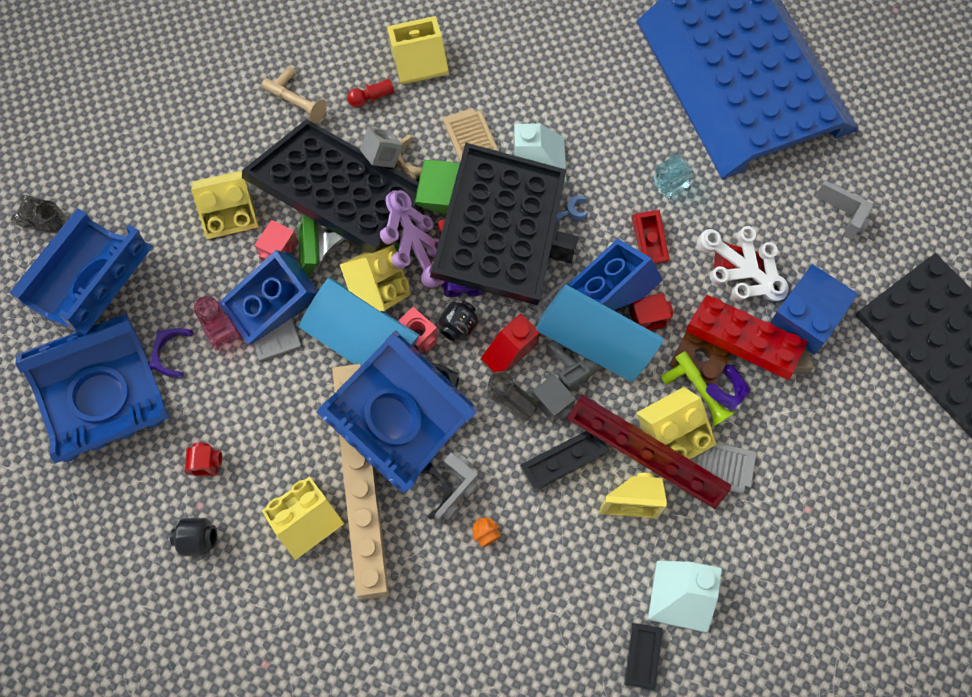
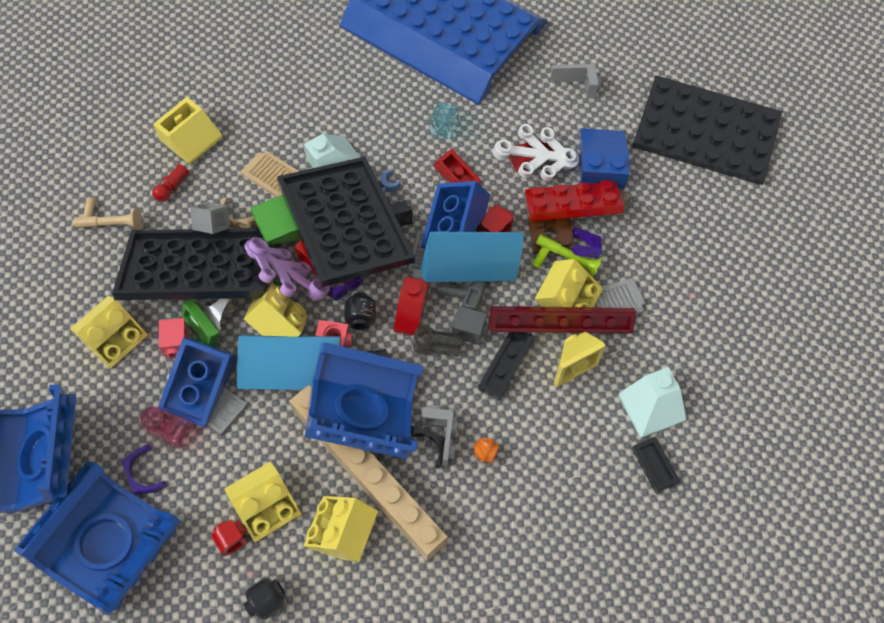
camera: 35 degrees left, 5 degrees down
(250, 446) = (262, 501): none -> light yellow slope

